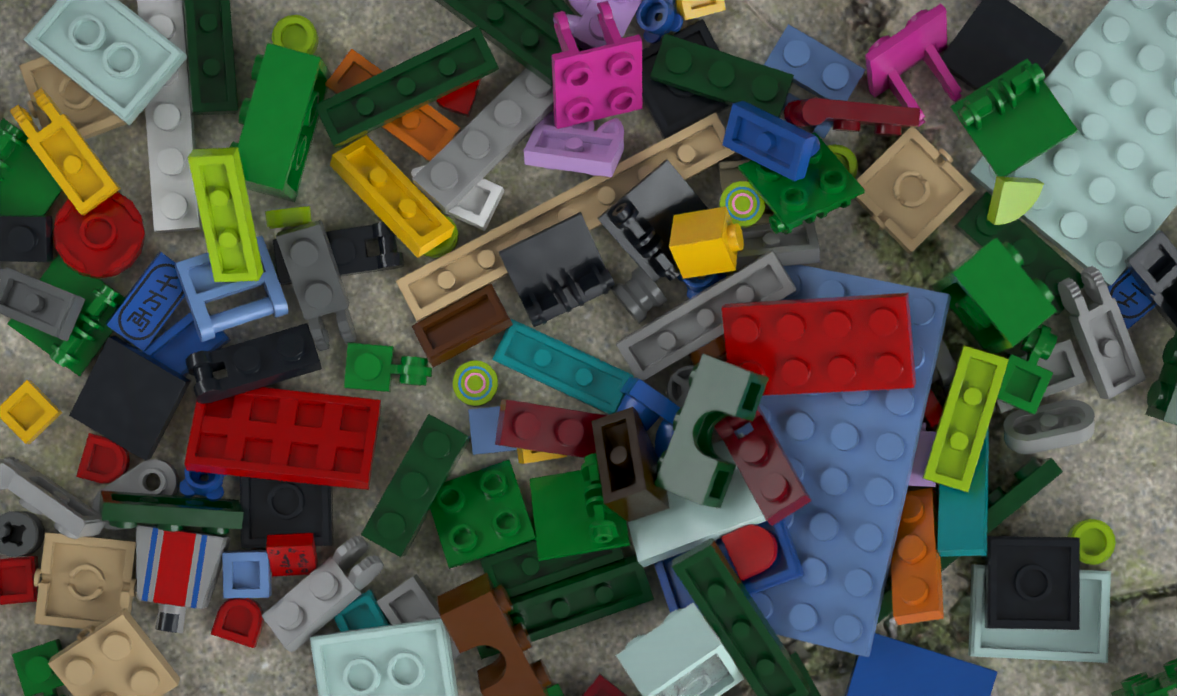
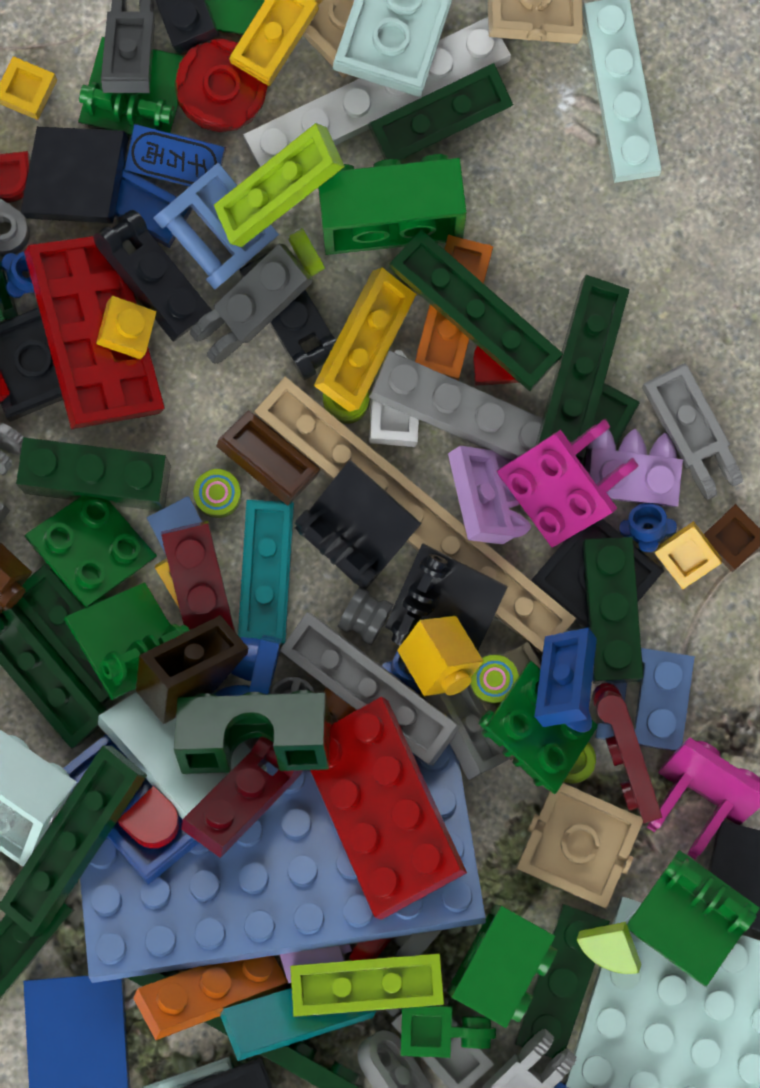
camera: 65 degrees right, 5 degrees down
(294, 405) = (126, 327): none -> yellow plate
(296, 34) = (483, 191): lime tile -> none
(372, 368) = (192, 391): green plate -> none

